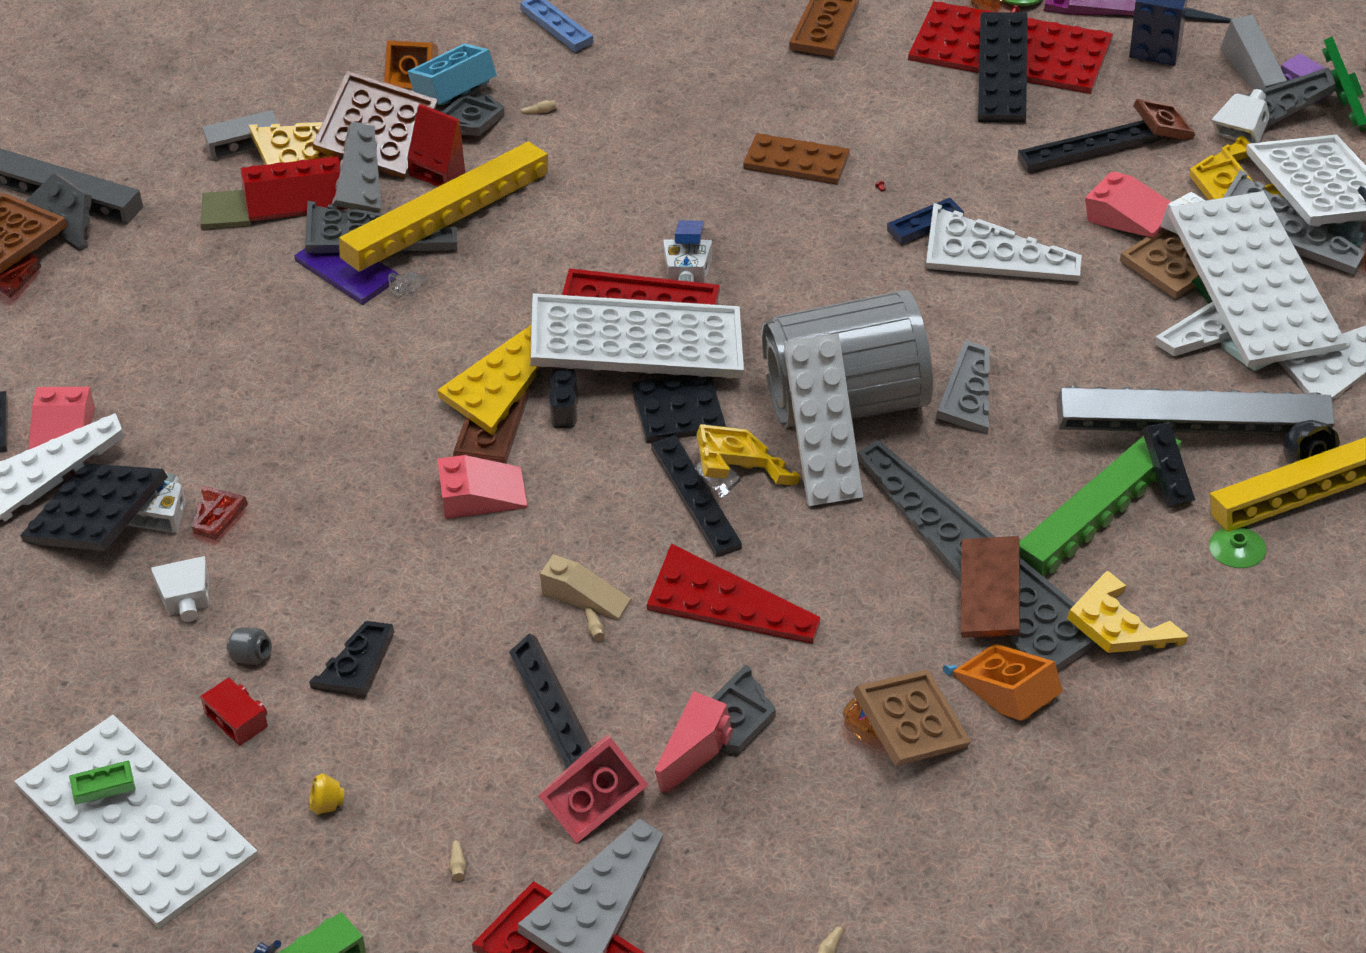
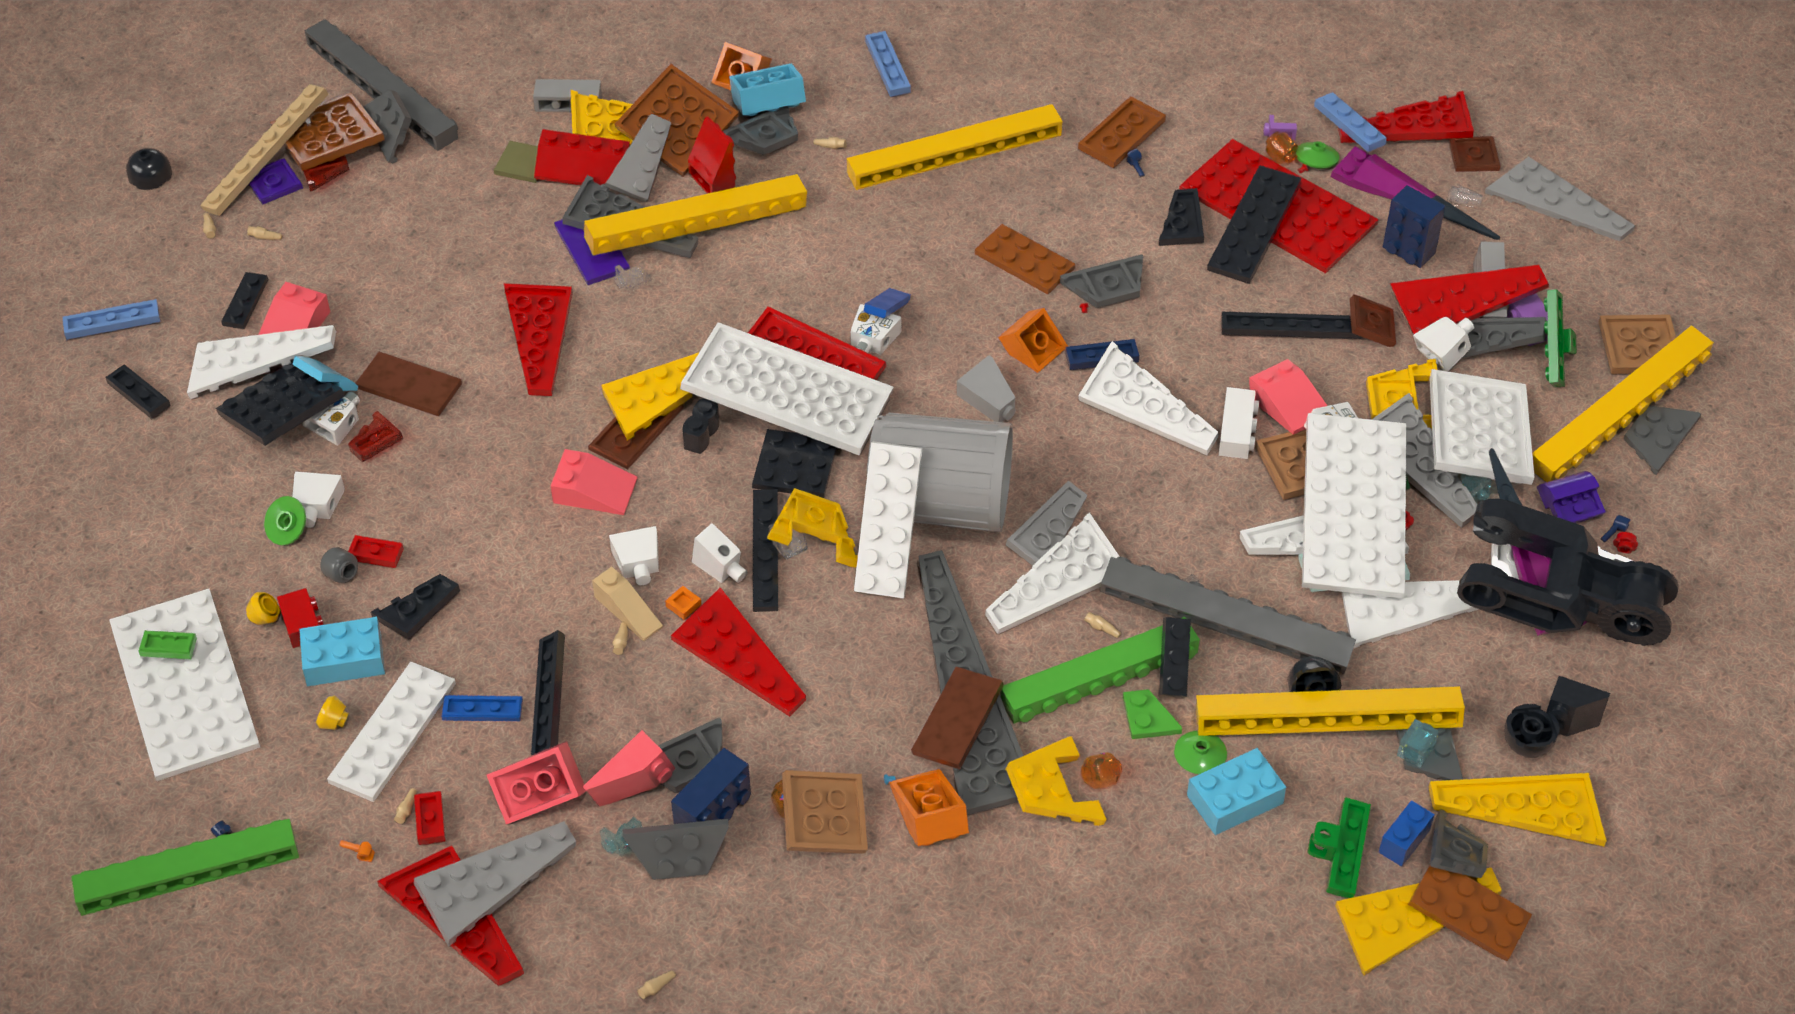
camera: 20 degrees right, 5 degrees up
(131, 461) = (323, 373): none -> medium azure slope
(153, 616) = (285, 520): none -> bright green dish
(187, 715) = (262, 609): none -> yellow cone
(222, 450) = (408, 383): none -> copper tile
(282, 620) = (376, 551): none -> red plate
(301, 729) = (342, 651): none -> medium azure brick
(336, 356) = (539, 326): none -> red wing
(398, 793) = (391, 731): none -> white plate
(436, 919) = (365, 850): none -> orange hand
(484, 738) = (482, 708): none -> blue tile
(491, 863) = (429, 818): none -> red plate
(566, 536) = (636, 553): none -> white torso
(641, 569) = (683, 602): none -> orange plate
(655, 512) = (717, 555): none -> white torso
(667, 78) = (954, 146): none -> yellow brick
(712, 816) = (615, 842): none -> clear light blue bracket
(783, 800) = (677, 848): none -> dark grey wing
(788, 741) = (714, 790): none -> dark blue brick
(833, 281) = (987, 391): none -> light grey slope
(849, 44) = (1133, 159): none -> dark blue hand
(851, 225) = (1033, 340): none -> orange slope
(891, 156) = (1107, 282): none -> dark grey wing
(931, 82) = (1183, 220): none -> black wing
(1011, 424) = (1056, 578): none -> white wing
(1070, 461) = (1100, 623): none -> tan piece
(1095, 244) = (1238, 423): none -> white brick
(1157, 592) = (1101, 770): none -> clear orange head
(1168, 530) = (1148, 716): none -> bright green wing
(1251, 67) = (1465, 294): none -> red wing
(1298, 568) = (1236, 791): none -> medium azure brick

